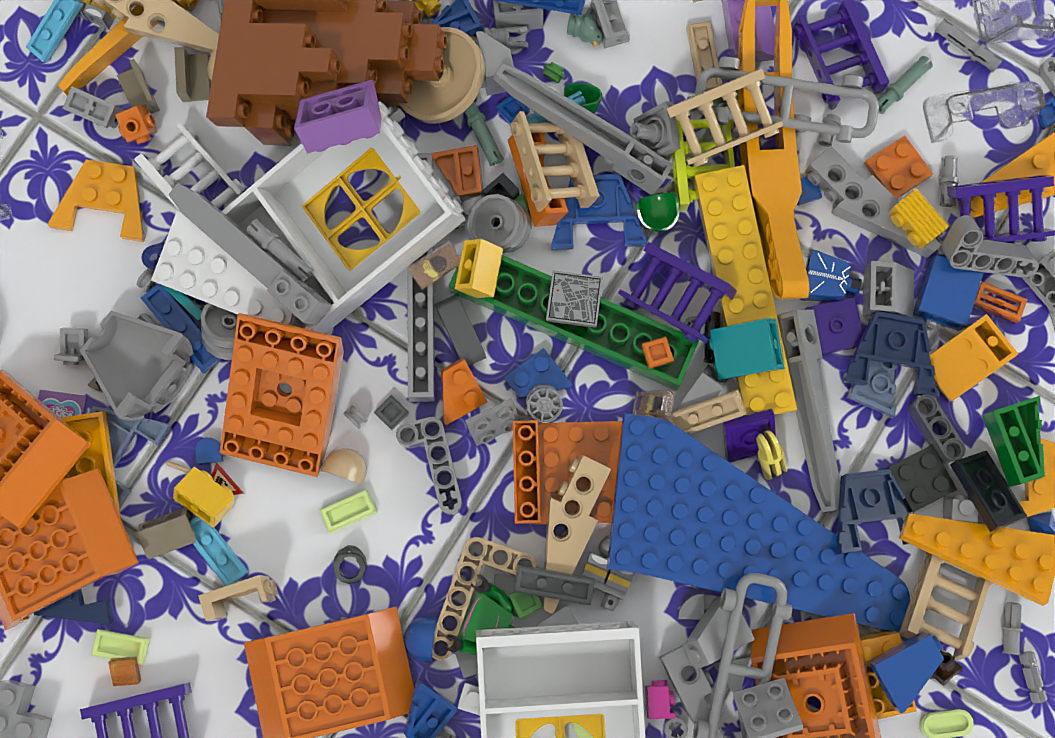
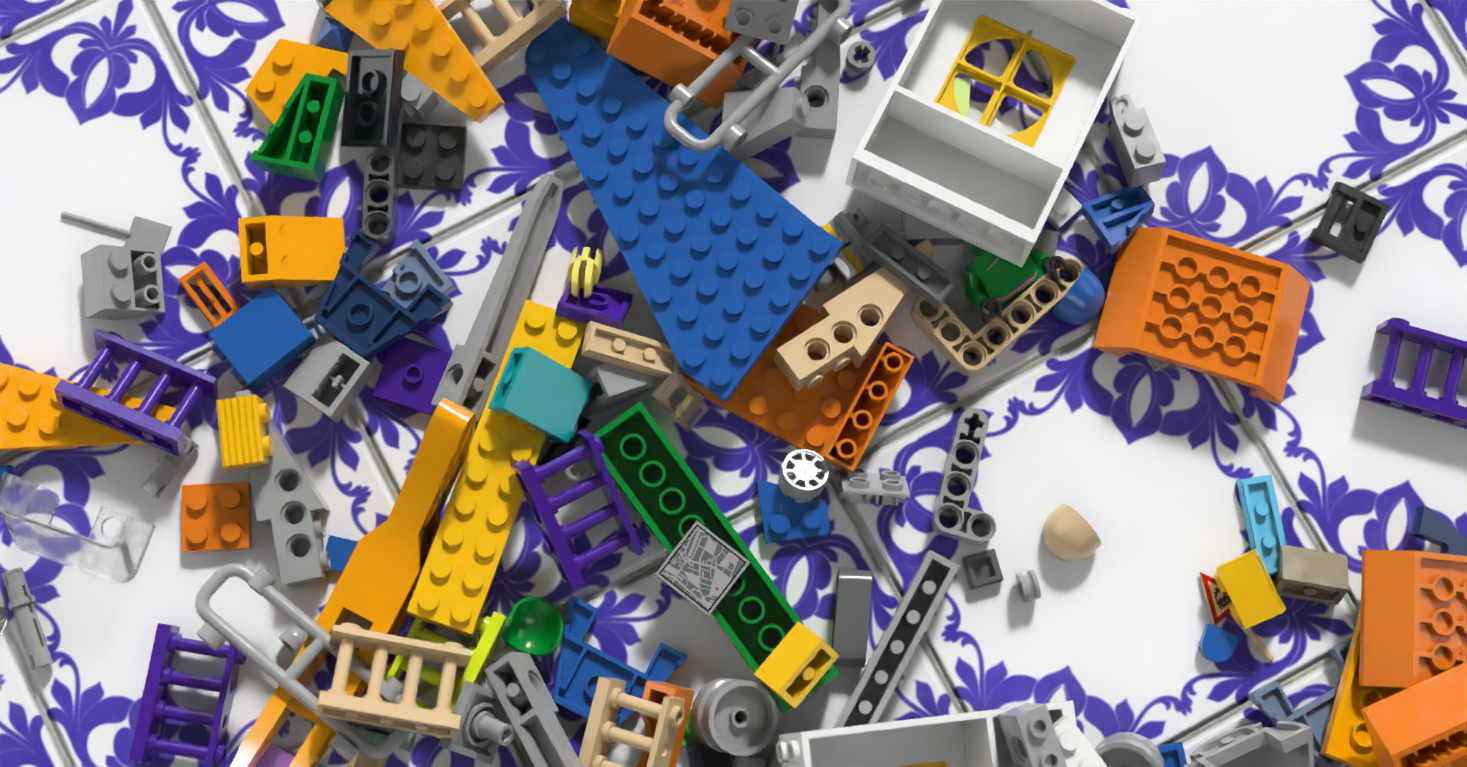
camera: 155 degrees left, 0 degrees up
(120, 645) = (1420, 478): yellowish green tile -> none
(124, 671) = (1428, 447): clear orange tile -> none
(213, 601) = (1292, 463): tan panel -> none
(262, 419) = (1132, 632): orange slope -> none
(348, 511) = (1091, 484): yellowish green tile -> none
(348, 551) = (1113, 437): pearl dark grey piece -> none
(435, 265) = (842, 704): clear tile -> none
(460, 391) = (892, 544): orange wing -> none
(524, 603) = (952, 265): bright green plate -> none
(657, 352) = (644, 451): orange tile -> none
(659, 700) = (862, 91): dark pink brick -> none
(692, 608) = (769, 164): light grey tile -> none
(826, 139) = (261, 615): light grey pin -> none
(829, 278) = (388, 432): blue torso -> none
(867, 499) = (512, 166): dark blue wing -> none
(896, 91) = (155, 612): sand green pin -> none
(969, 251) = (210, 364): light grey beam -> none

